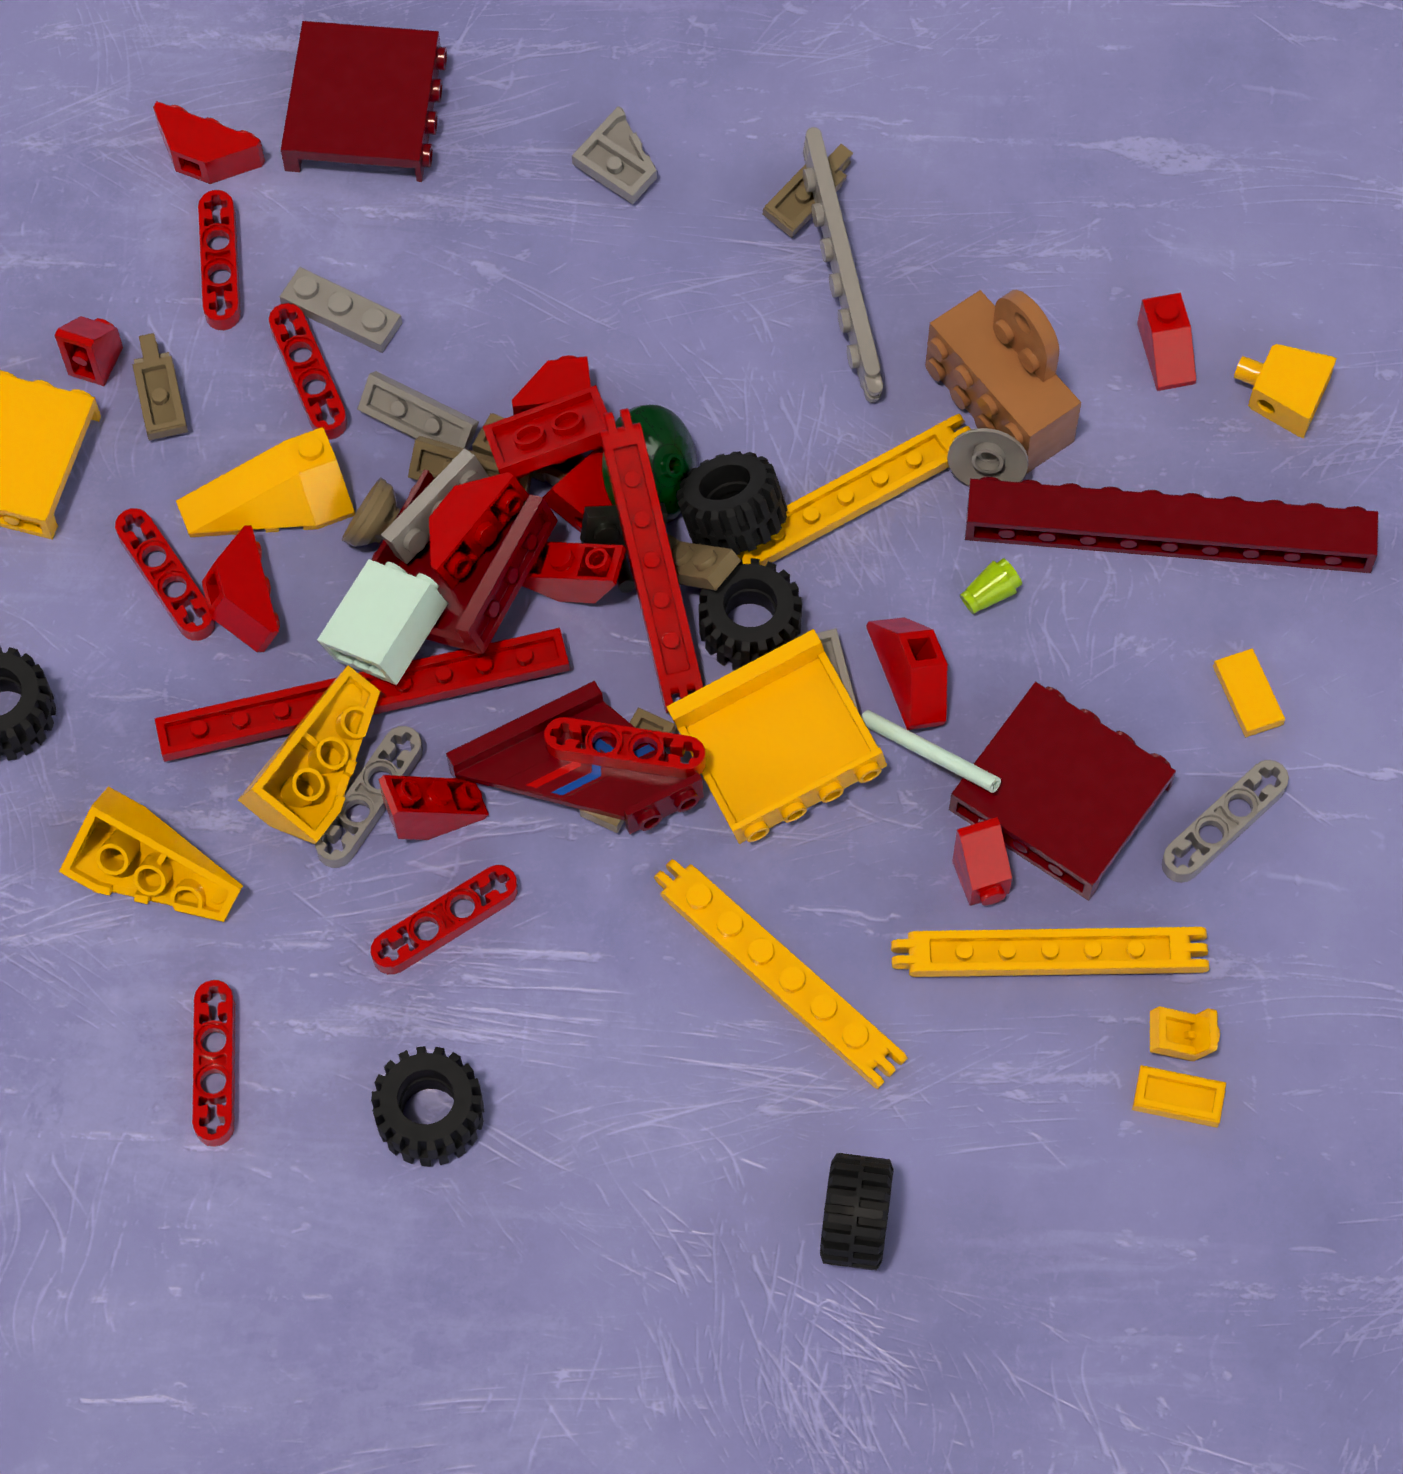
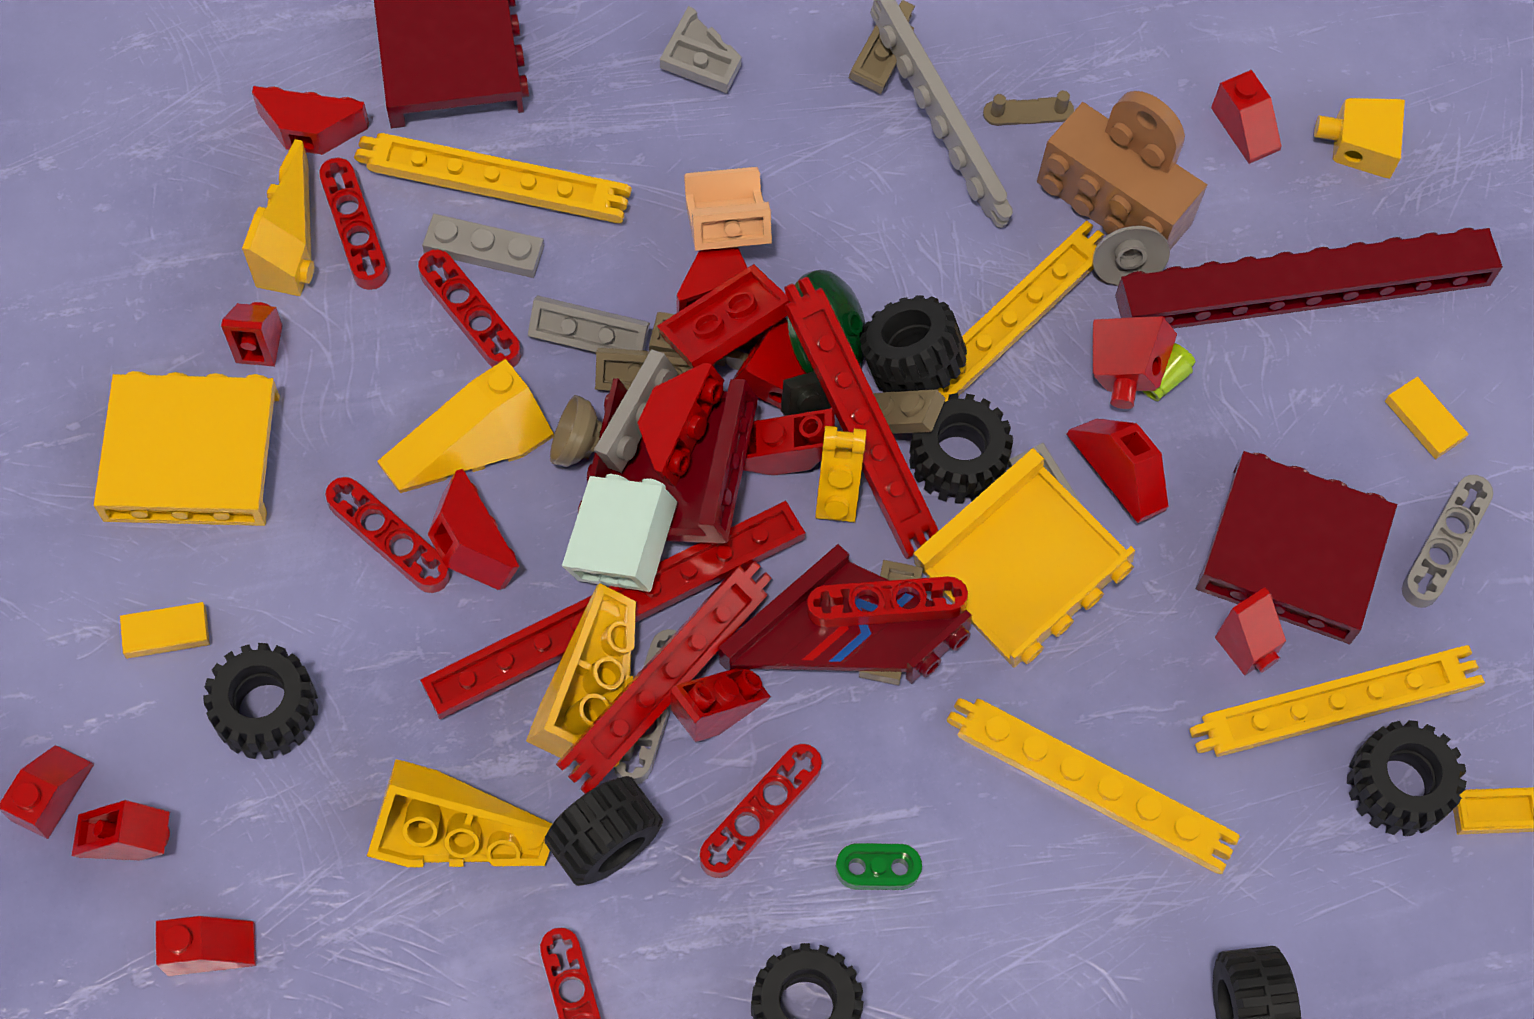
camera: 20 degrees left, 0 degrees up
(142, 258) = (280, 234): none -> yellow wedge
(158, 391) = (331, 359): dark tan hinge -> none
(281, 898) = (603, 830): none -> black tyre
(371, 242) = (494, 177): none -> yellow hinge
(402, 756) = (673, 664): none -> red hinge
(542, 996) = (877, 866): none -> green plate
(589, 323) = (727, 208): none -> light nougat panel
(615, 612) = (840, 474): none -> yellow plate
(931, 751) = (1173, 539): light aqua piece -> none
(937, 287) = (1030, 111): none -> dark tan piece
(953, 561) = (1131, 355): none -> red torso
(1095, 1007) = (1423, 752): none -> black tyre
(1183, 1033) = (1488, 749): yellow bracket -> none

